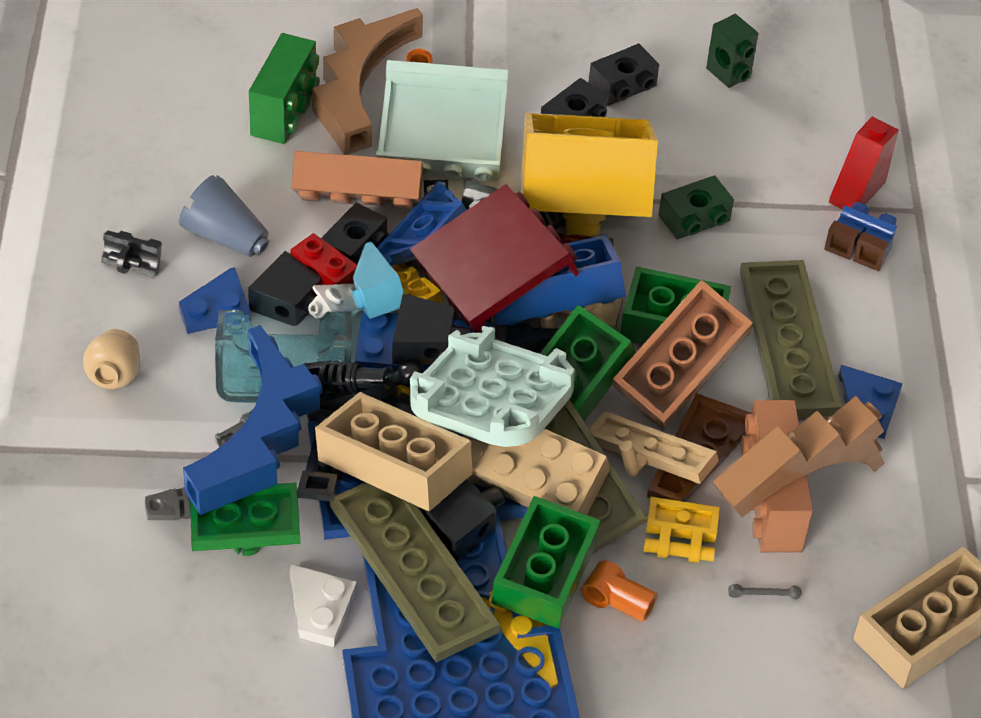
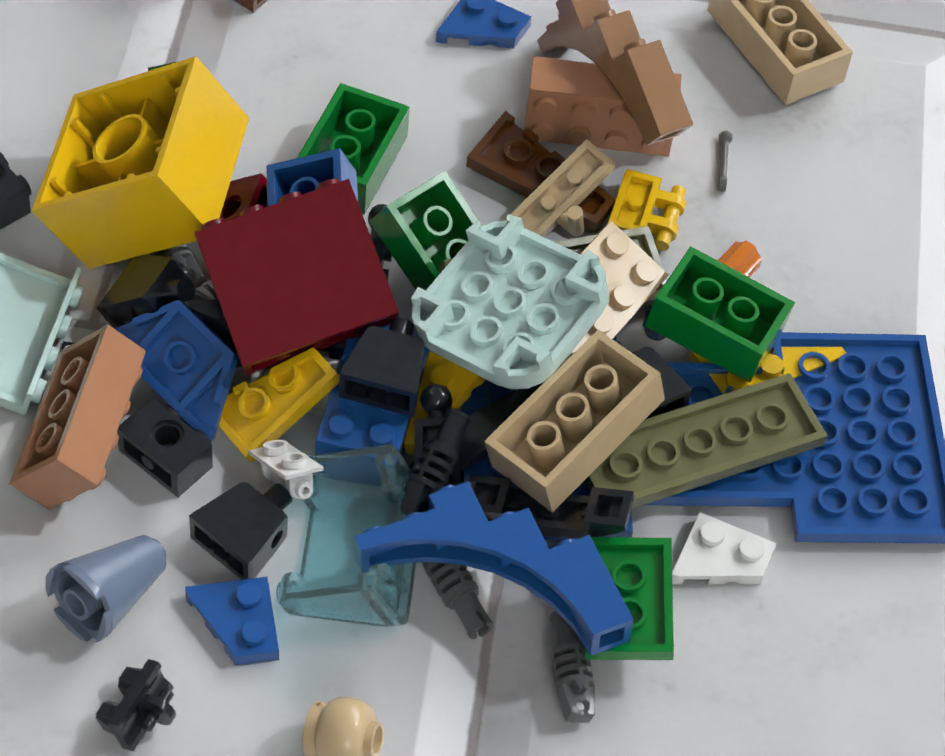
camera: 85 degrees left, 5 degrees up
(324, 260) = (215, 475): red brick -> none
(376, 284) = (288, 412): medium azure slope -> none
(682, 354) = (441, 131): nougat brick -> none
(790, 336) = (391, 64): olive plate -> none

